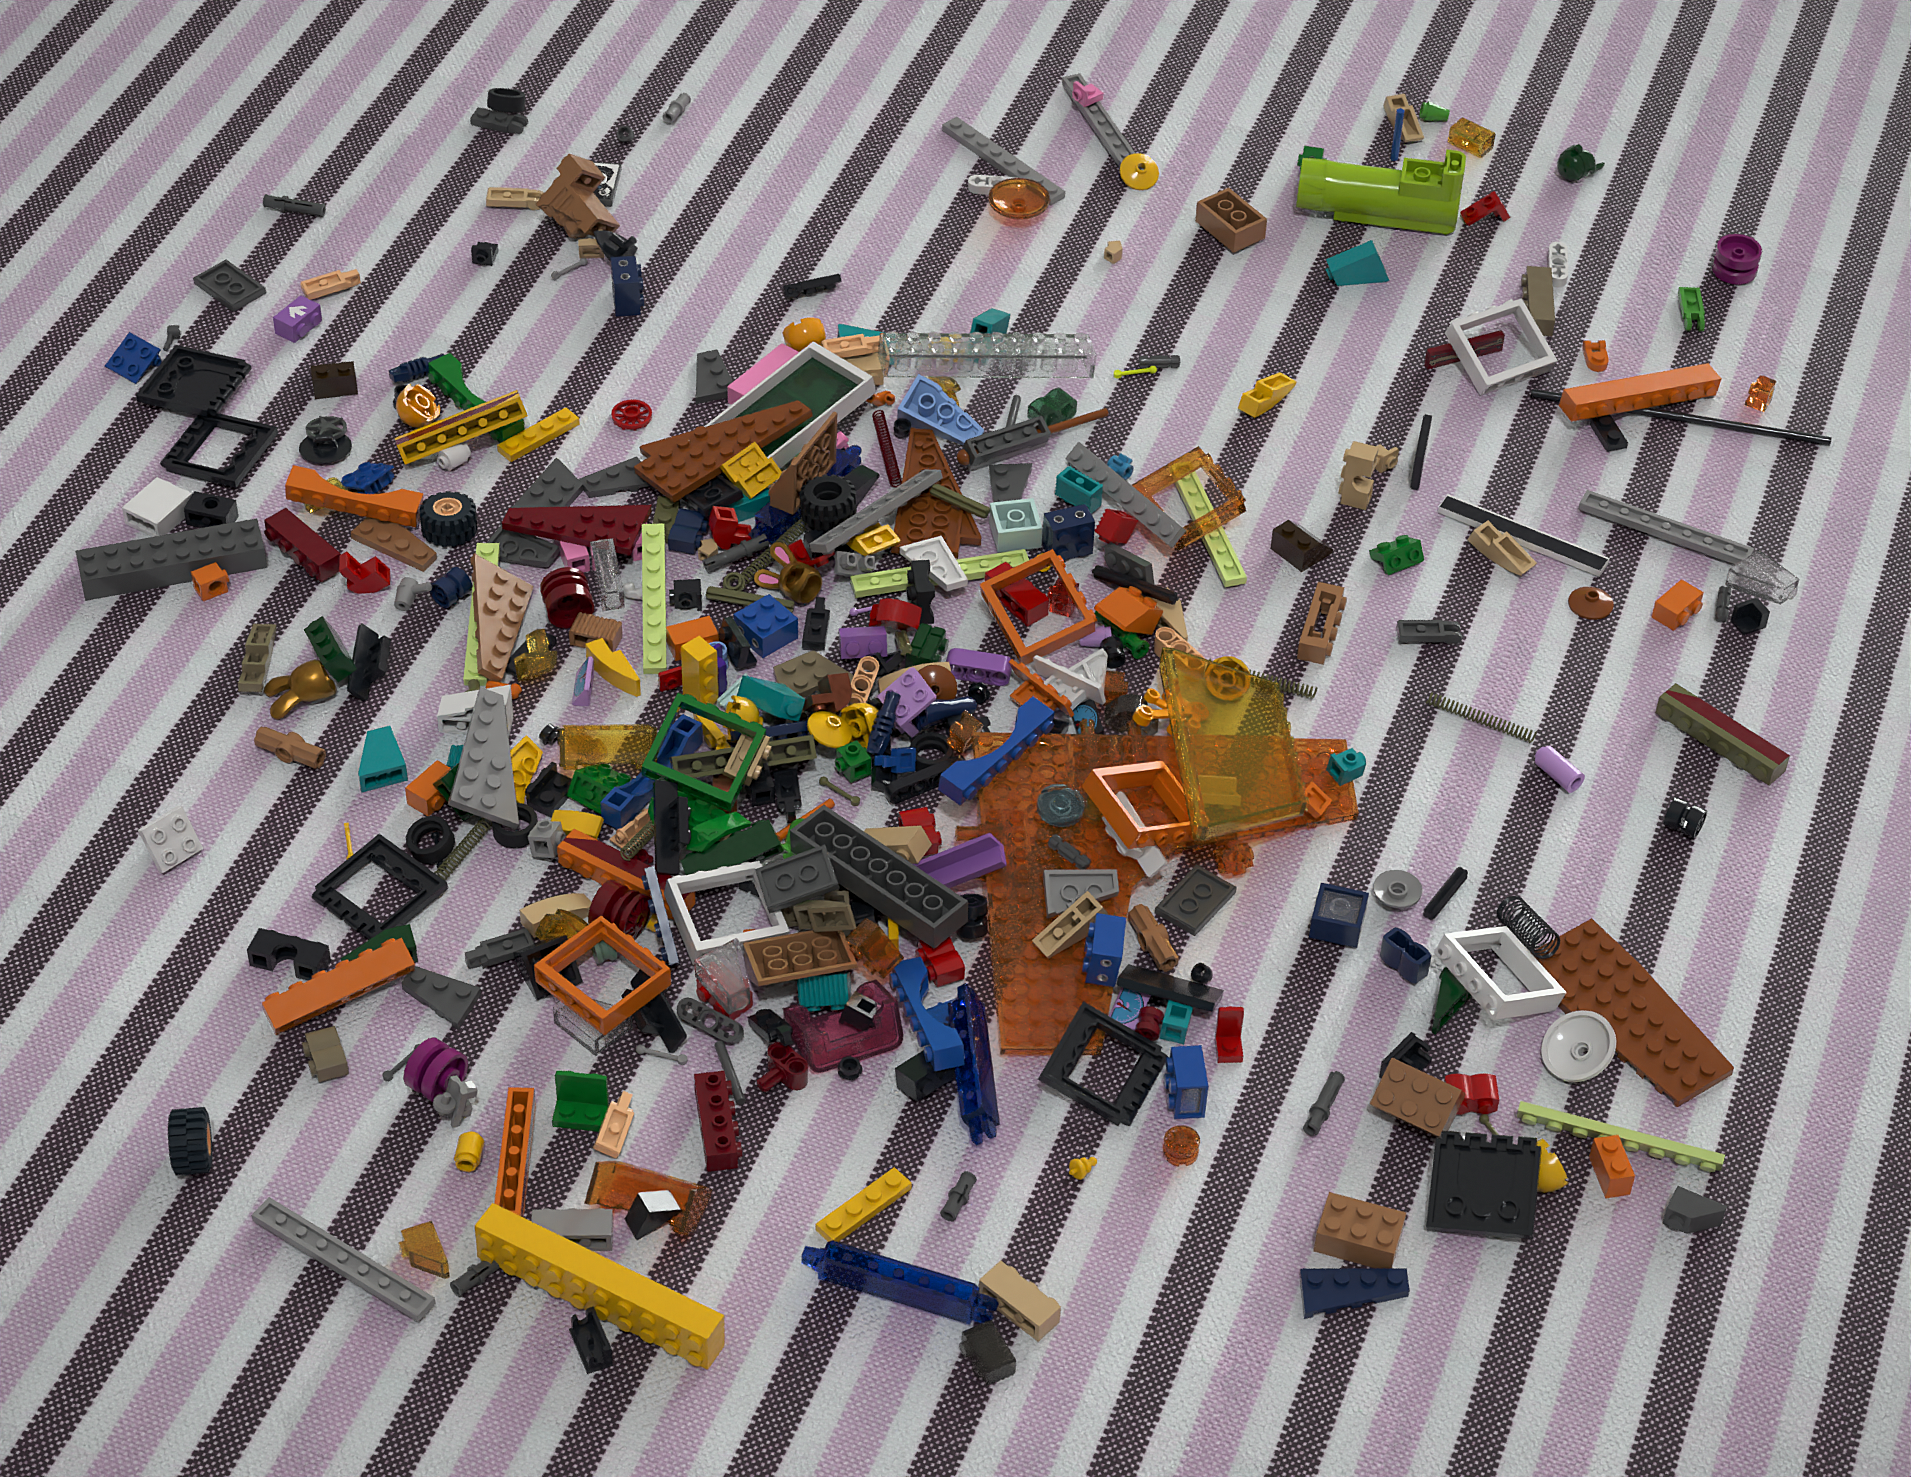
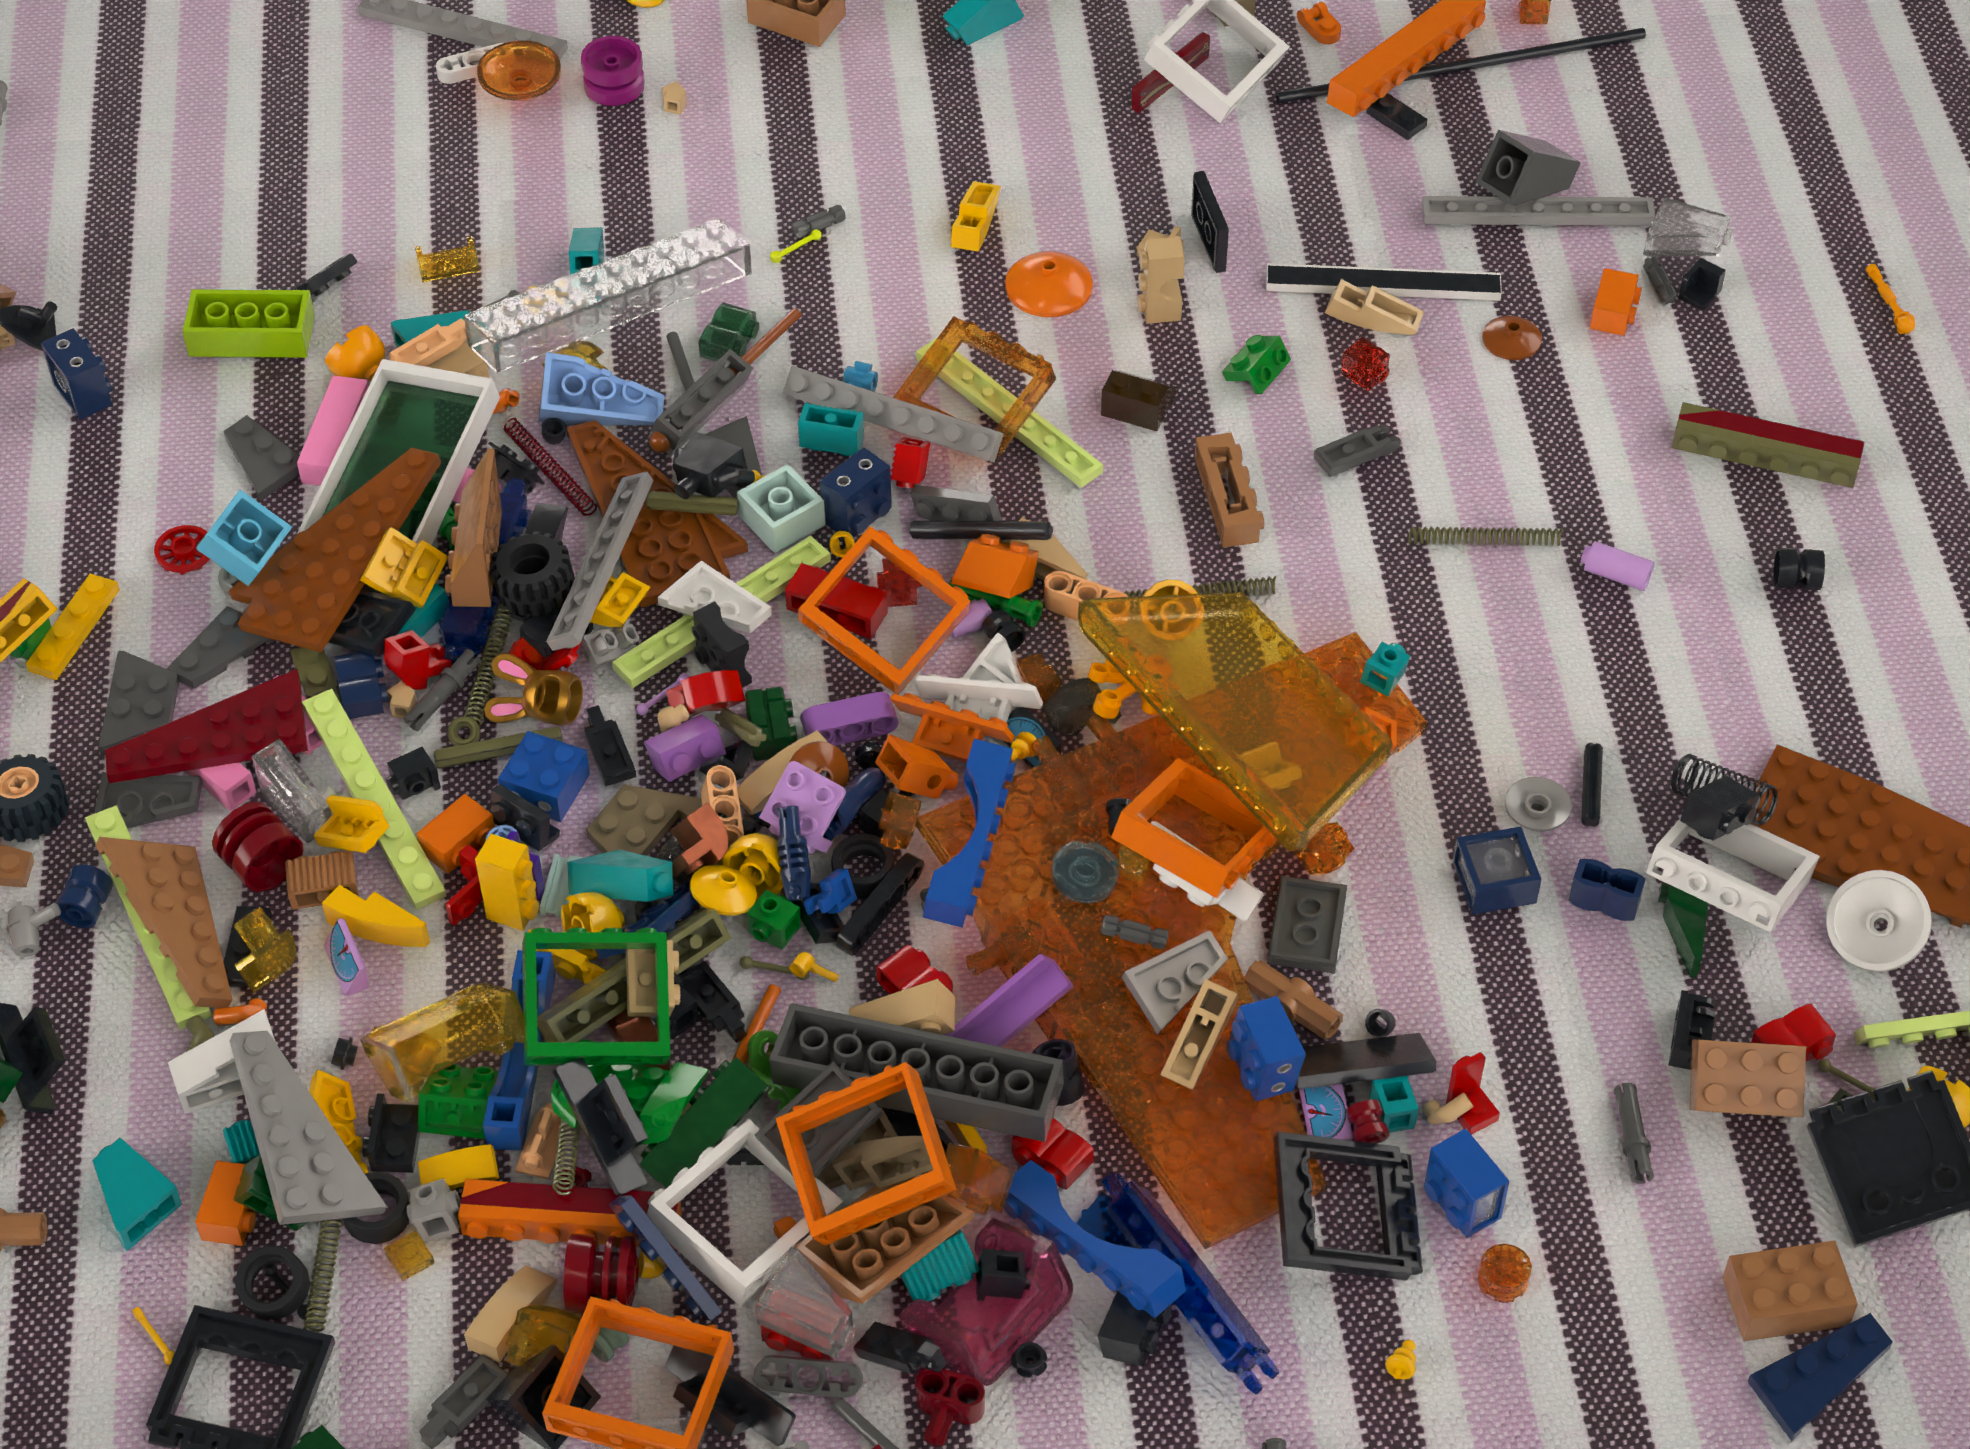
camera: 25 degrees left, 5 degrees up
(519, 860) = (409, 1255): none -> clear yellow plate
(631, 608) = (353, 826): none -> yellow bracket
(661, 415) = (243, 540): none -> medium azure piece
(750, 294) = (248, 323): none -> lime brick
(814, 933) = (882, 1205): none -> orange window
(857, 793) = (805, 962): none -> yellow hand
(858, 434) = (507, 462): none -> black hinge
(865, 620) = (672, 717): none -> tan arm
(900, 302) = (447, 262): none -> clear yellow hinge
(981, 481) = (710, 467): none -> black torso
(996, 707) = (915, 768): none -> orange torso
(1073, 722) = (1022, 746): none -> yellow hair
(1081, 219) = (612, 70): none -> magenta wheel
(1211, 1040) = (1447, 1113): none -> tan arm
(1290, 455) = (1048, 284): none -> orange dish
(1469, 580) = (1365, 364): none -> clear red brick
(1507, 930) = (1719, 808): none -> black brick
(1671, 496) = (1525, 168): none -> dark grey slope
(1885, 692) = (1903, 320): none -> light orange piece

